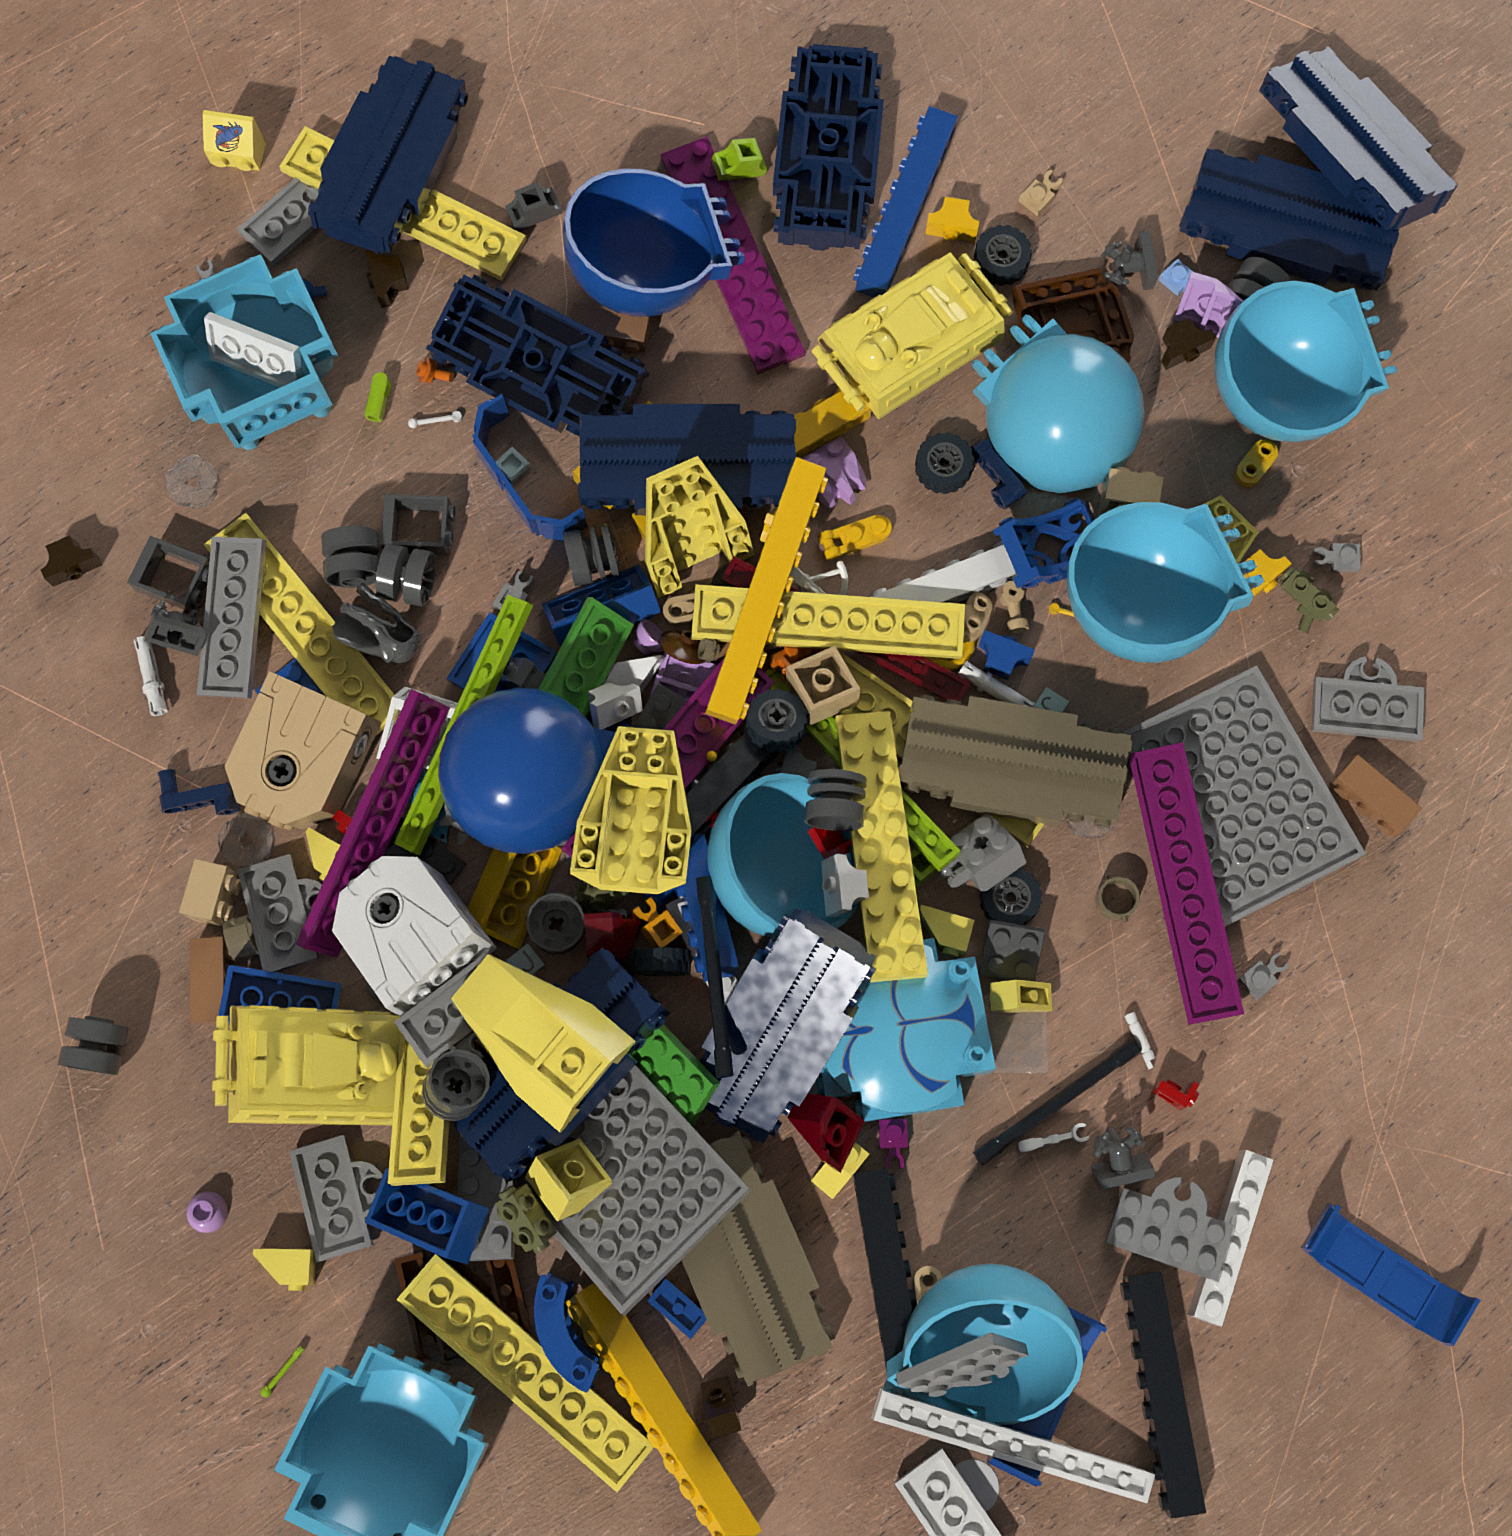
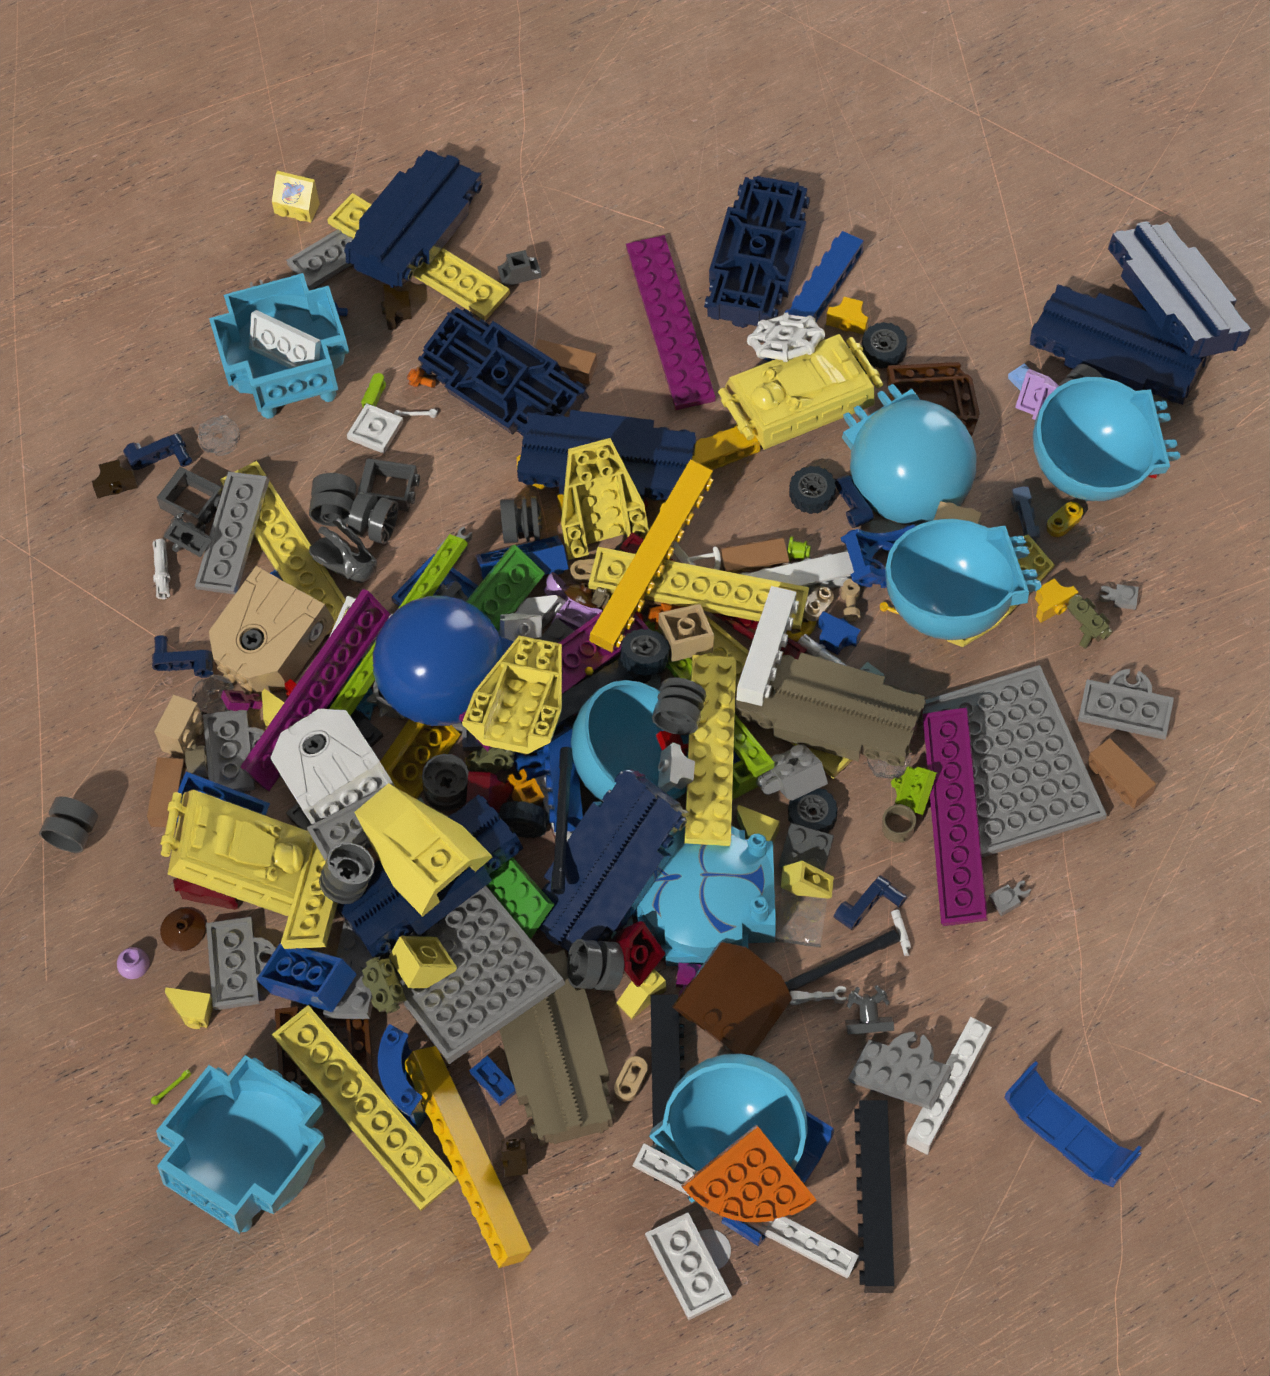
camera: 10 degrees right, 15 degrees down
(97, 526) = (141, 457): none -> dark blue beam
(274, 1163) = (184, 938): none -> reddish brown dish
(278, 847) = (238, 700): none -> magenta plate
(387, 448) = (375, 428): none -> white plate
(487, 416) = (458, 412): blue windscreen -> none
(513, 465) = (470, 452): light aqua tile -> none
(646, 241) = (601, 298): blue windscreen -> none
(739, 160) = (686, 254): lime brick -> none
(783, 1154) = (595, 964): none -> dark grey wheel
(841, 470) = (727, 487): lavender plate -> none
(843, 1281) = (630, 1080): none -> tan plate
(855, 536) = (733, 534): yellow plate -> none
(887, 566) = (754, 556): none -> medium nougat brick
(888, 248) = (786, 337): none -> white plate
(928, 698) = (766, 646): none -> white brick
(939, 548) = (798, 550): none -> lime brick
(957, 1168) = (734, 998): none -> reddish brown wedge
(964, 1365) = (710, 1125): light grey plate -> none
(1019, 1423) = (749, 1182): none -> orange plate
(1039, 194) = (922, 306): tan plate -> none
(1078, 1029) = (853, 915): none -> dark blue beam
(1128, 261) = (982, 360): dark grey piece -> none
(1130, 852) = (914, 788): none -> lime slope
(1171, 1093) = (919, 973): red bracket -> none
(1185, 343) = (1018, 424): dark brown brick -> none
(1202, 448) = (1021, 502): none -> sand blue plate

